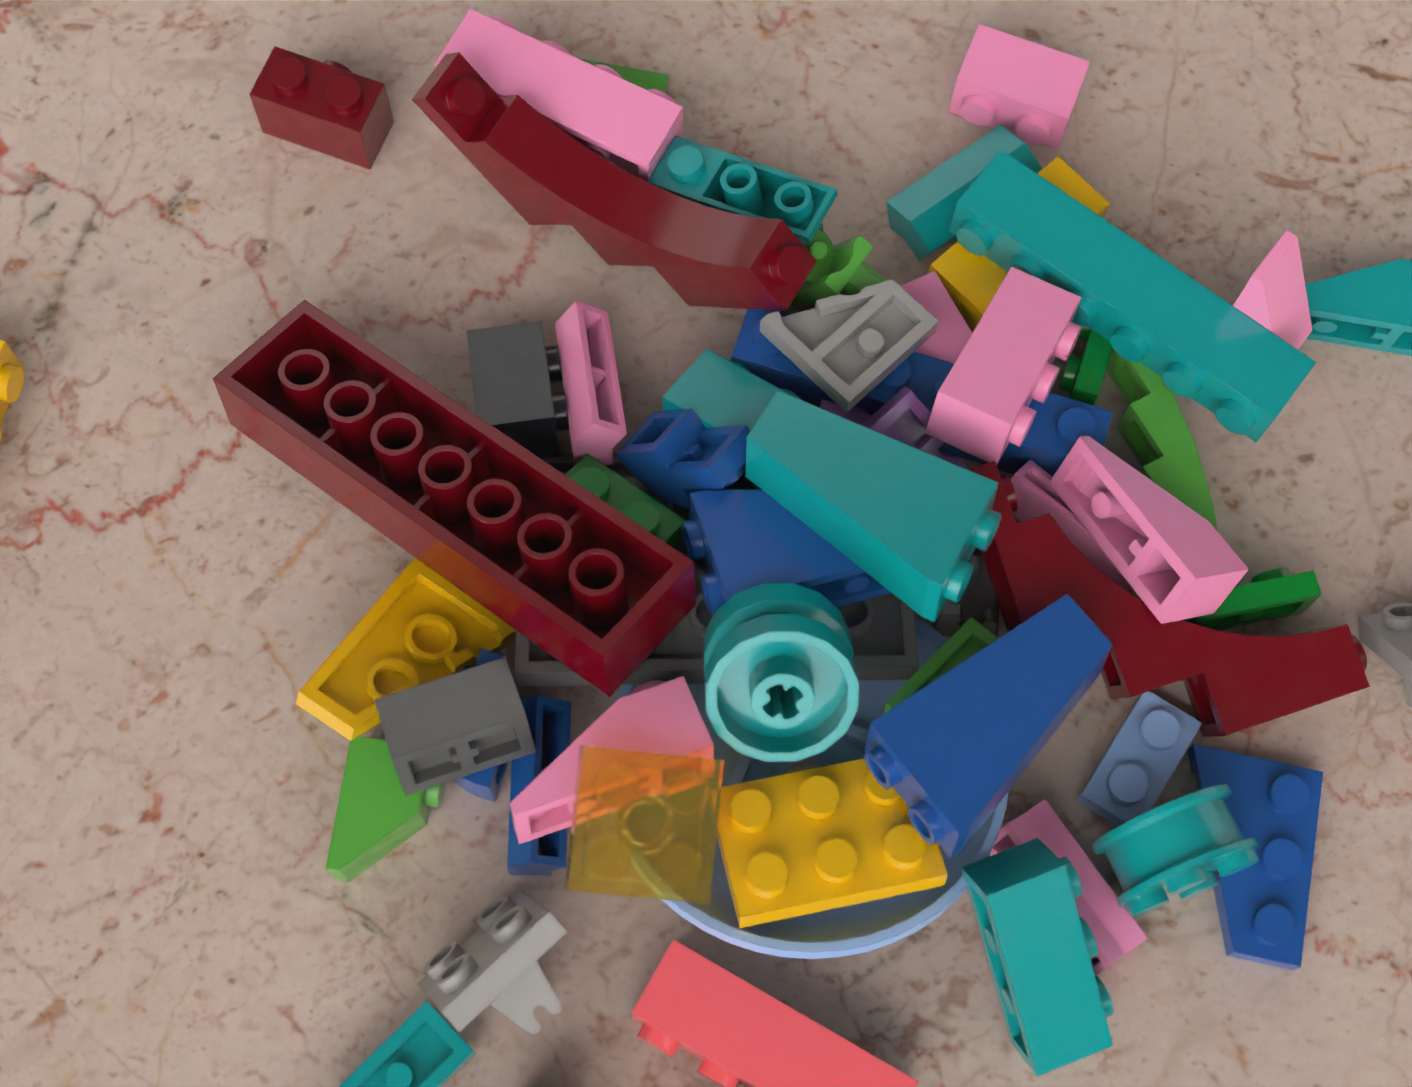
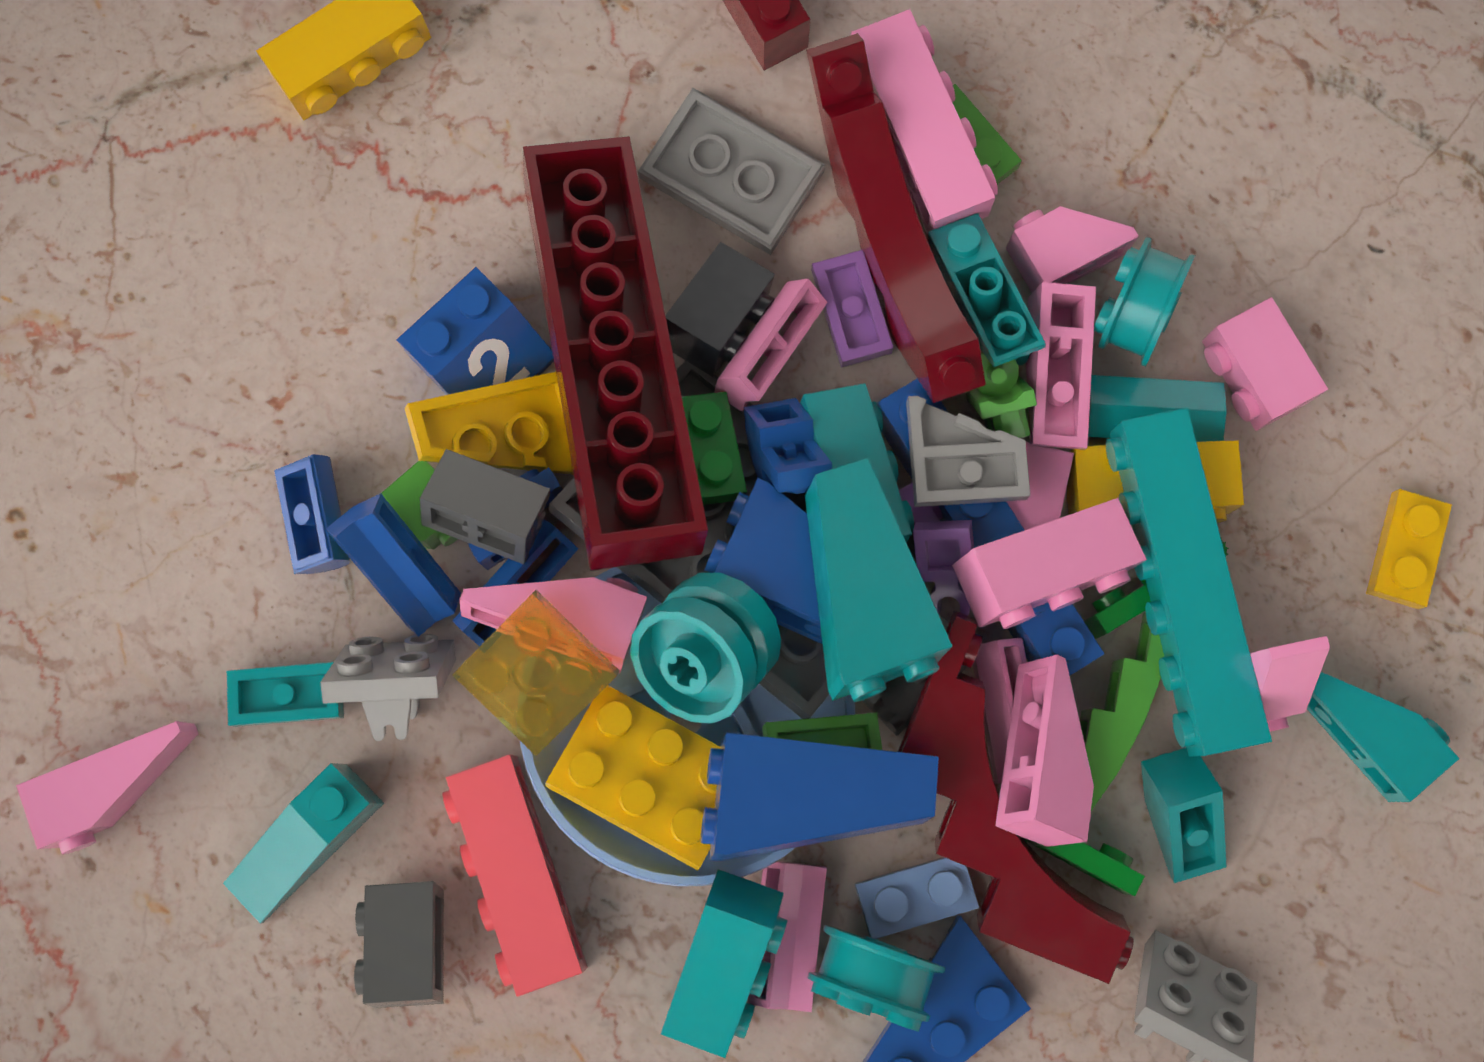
camera: 45 degrees right, 10 degrees up
(282, 885) = (308, 508): none -> blue brick
(305, 595) = (475, 339): none -> blue slope
(409, 856) = (396, 563): none -> blue piece
(418, 272) = (731, 171): none -> light grey tile
(636, 304) = (852, 308): none -> medium lavender plate
(770, 112) = (1065, 245): none -> bright pink slope
(863, 203) = (1062, 368): none -> bright pink slope
(879, 103) = (1145, 301): none -> teal wheel
(1263, 146) = (1409, 549): none -> yellow plate
(1293, 495) = (1185, 813): none -> teal slope

